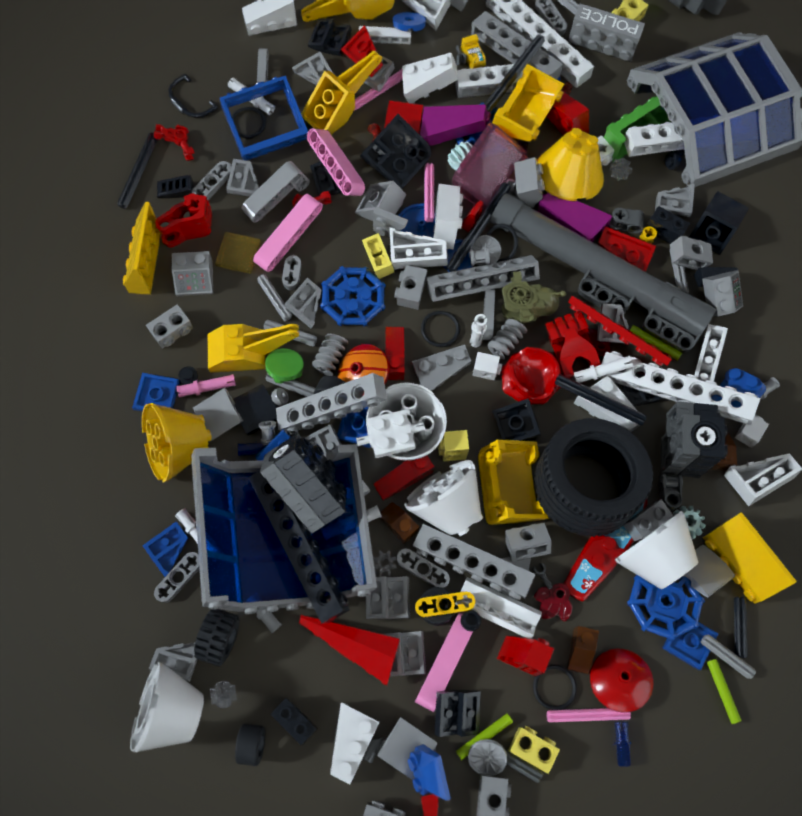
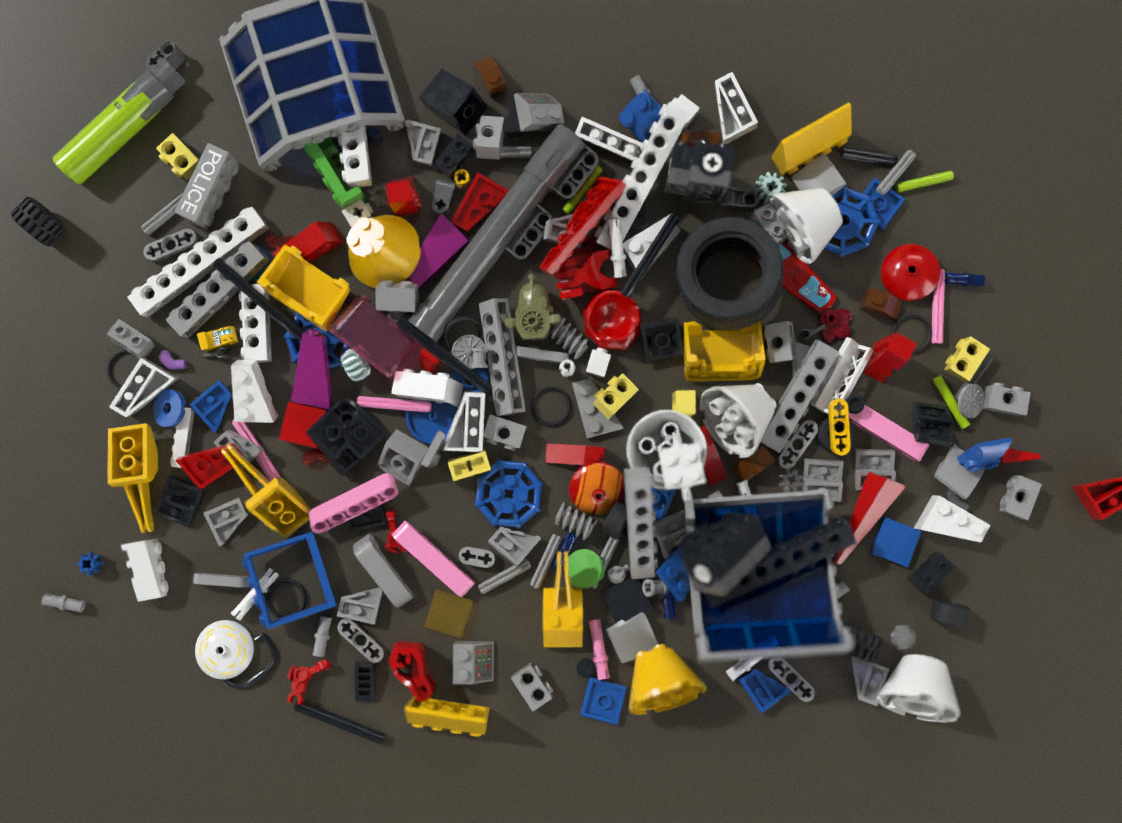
camera: 80 degrees left, 15 degrees up
(202, 78) = (237, 648): none -> white dish
(214, 150) = (322, 636): none -> light grey pin
(302, 349) = (567, 546): none -> clear blue axle
(326, 682) = (895, 542): none -> blue tile
(413, 51) = (213, 404): none -> blue wing
(447, 23) = (166, 359): none -> medium lavender arm
(452, 386) = (616, 397): none -> light yellow brick
(622, 181) = (403, 196): none -> red wedge
(748, 253) = (491, 76): none -> reddish brown slope

